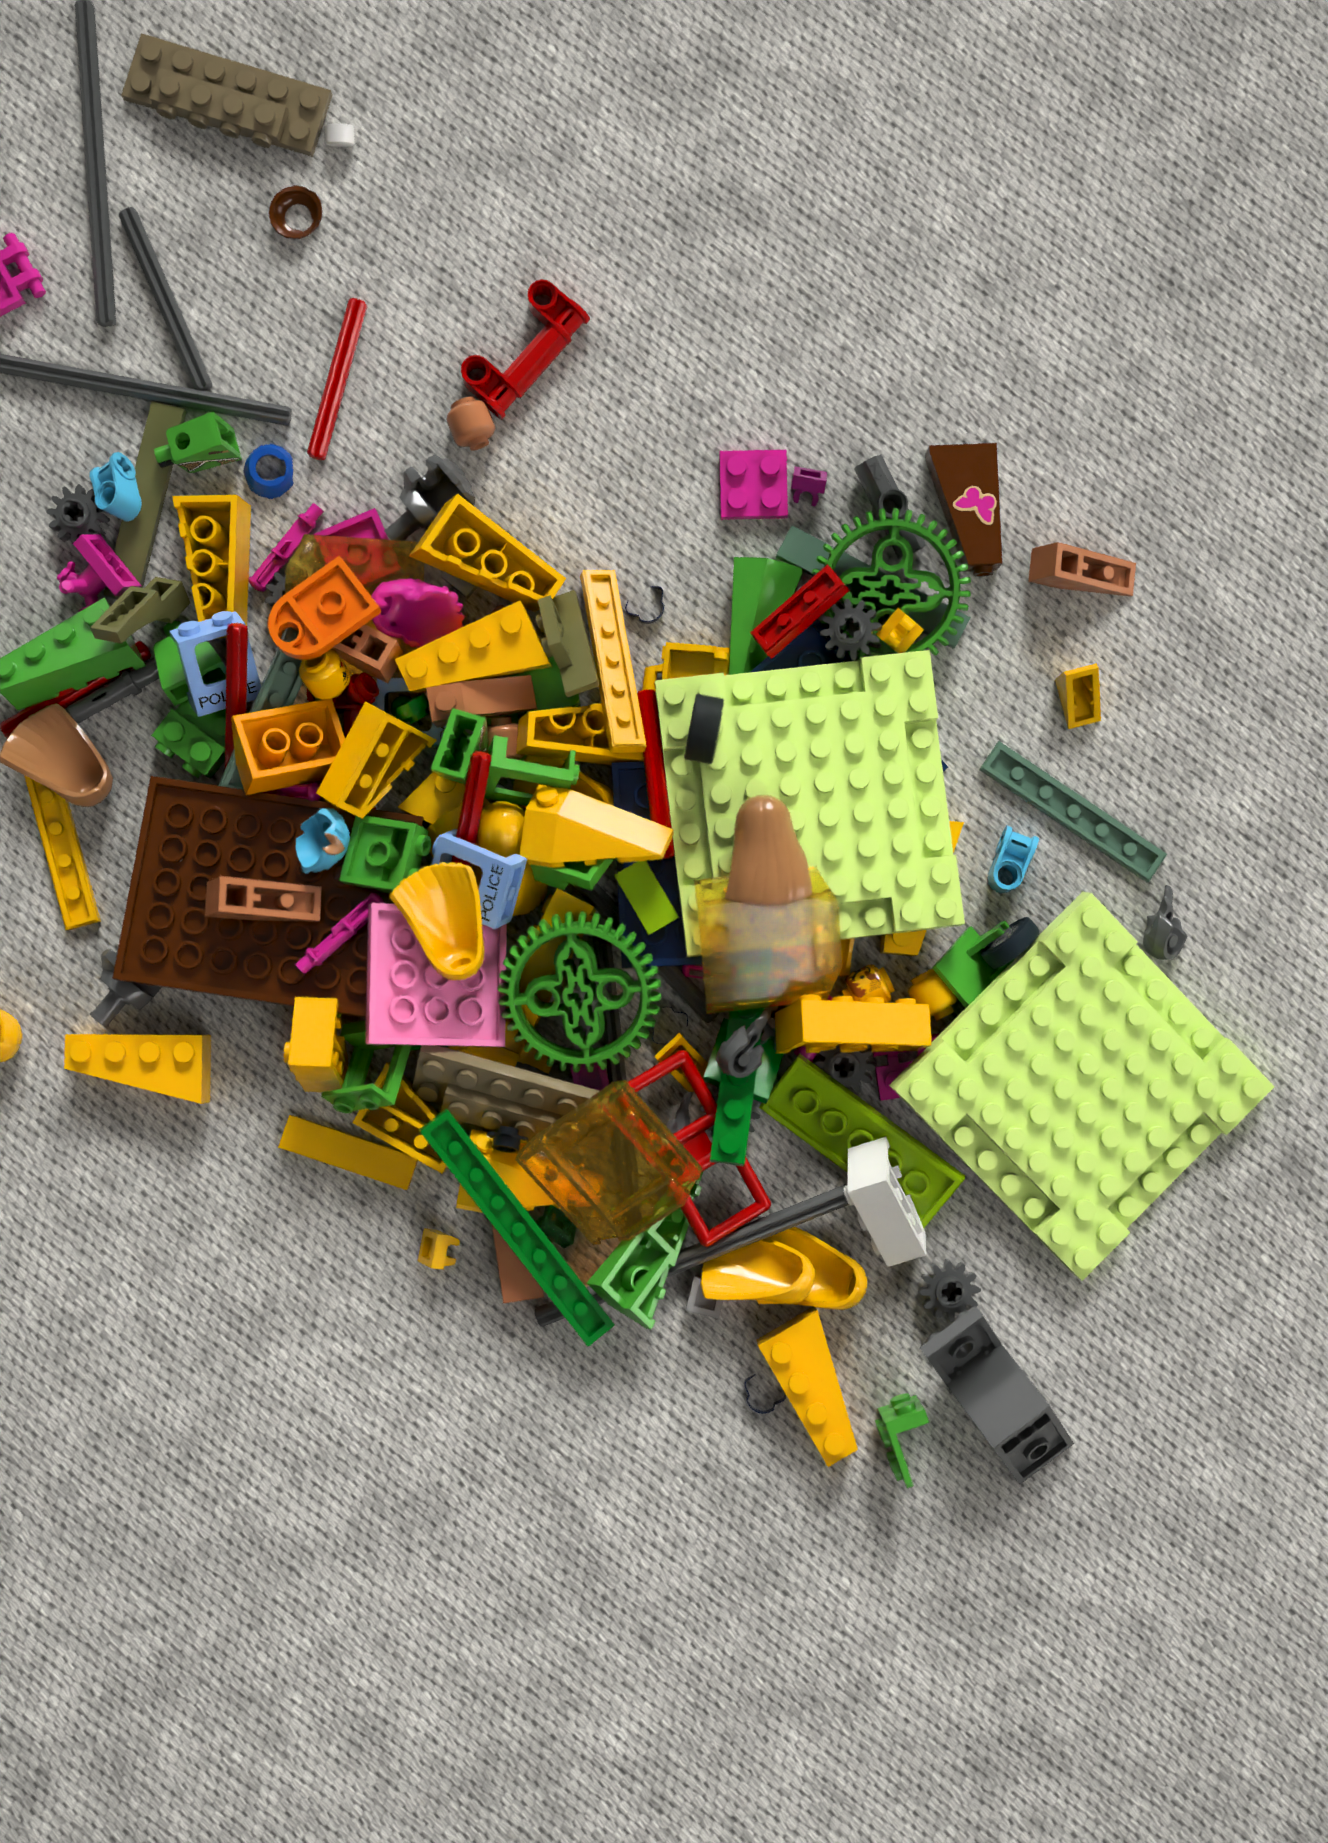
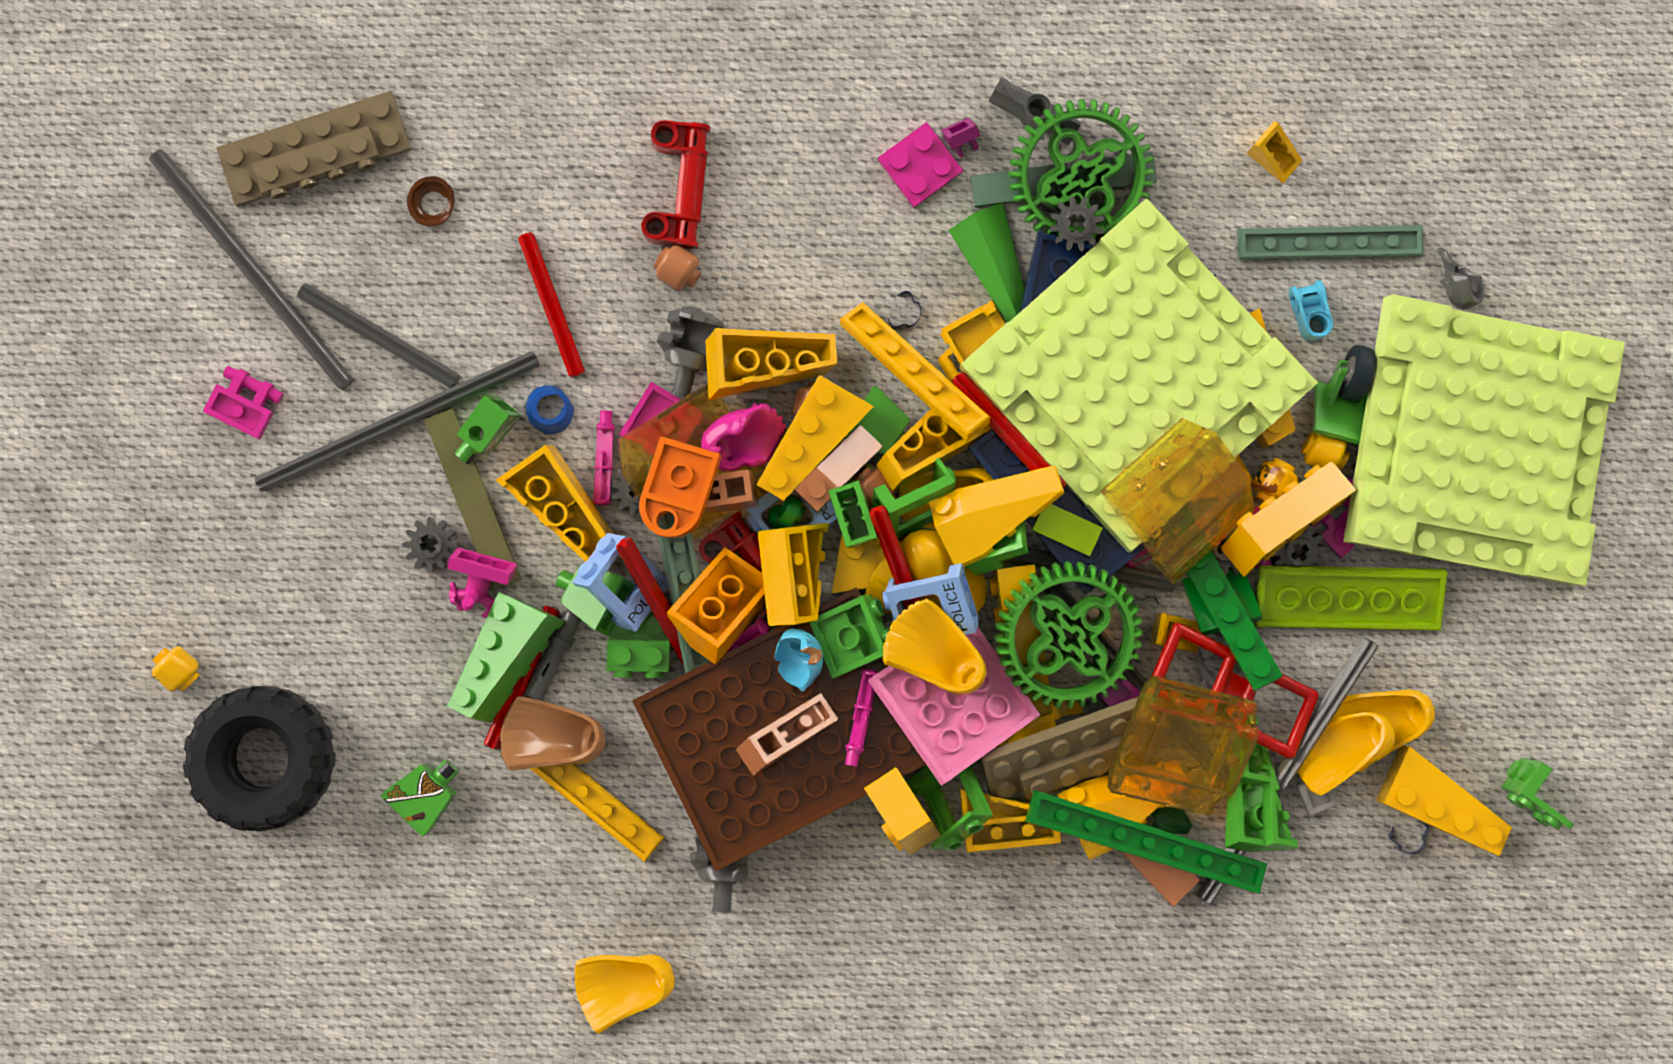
camera: 35 degrees left, 0 degrees up
(116, 487) = (446, 503): medium azure piece -> none
(137, 607) = (533, 581): olive slope -> none
(154, 1062) = (779, 915): yellow wedge -> none
(325, 675) = (711, 534): yellow head -> none
(339, 135) = (422, 120): white piece -> none
(348, 1152) = (974, 877): yellow tile -> none
(362, 688) = (743, 523): red plate -> none
(434, 1249) = (1091, 902): yellow tile -> none
(507, 1139) = (1092, 782): black plate -> none
(567, 641) = (873, 381): olive bracket -> none
(704, 728) = (1028, 374): black tyre -> none
(737, 1055) = (1219, 598): dark grey piece -> none
(767, 856) = (1142, 436): medium nougat hair -> none
(799, 611) = (1028, 236): red tile -> none
(882, 1204) = (1400, 632): white wedge -> none
(899, 631) = (1113, 199): yellow tile -> none
(940, 1281) = (1481, 662): dark grey gear -> none
(969, 497) = (1091, 64): reddish brown slope -> none
(997, 1394) = (1584, 713): dark grey bracket -> none
(1081, 570) = (1210, 58): nougat slope -> none

